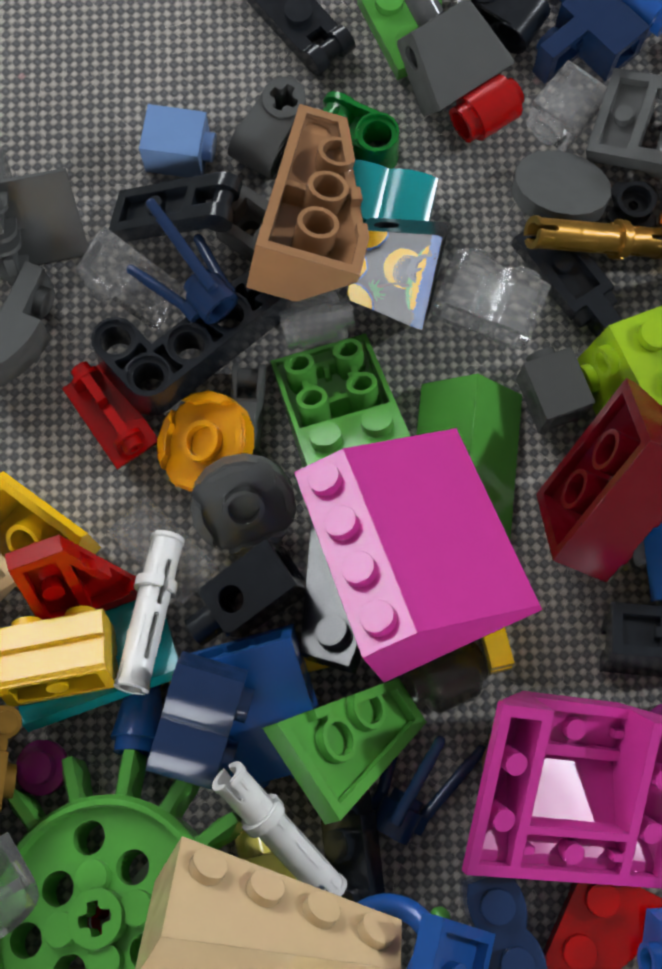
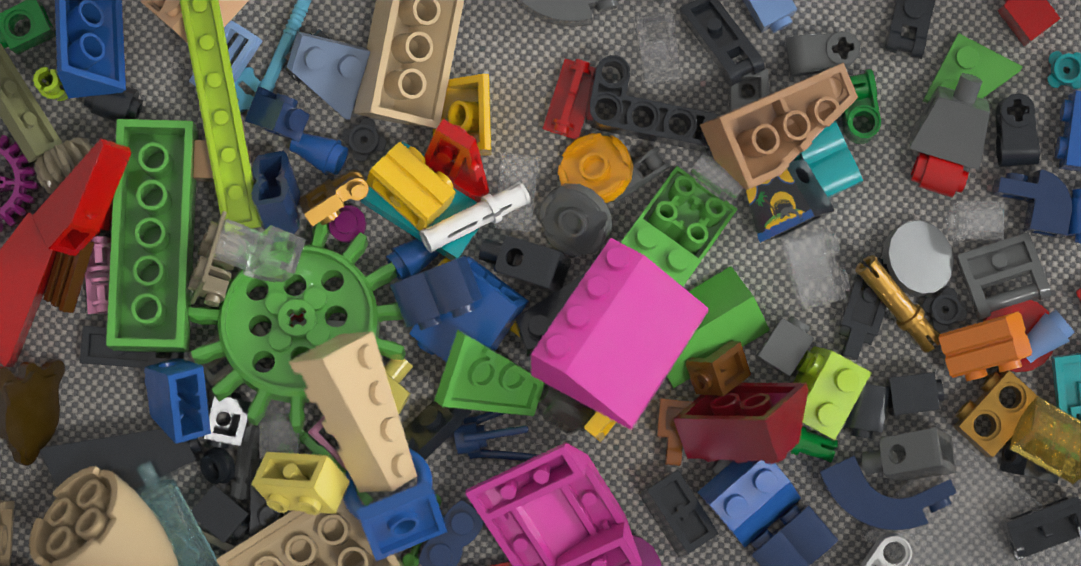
camera: 55 degrees right, 10 degrees up
(207, 290) = (679, 105): dark blue plant -> none
(265, 818) = (413, 366): white pin -> none
(533, 476) = (719, 371): none -> reddish brown bracket
(553, 577) = (667, 429): none -> dark orange plate

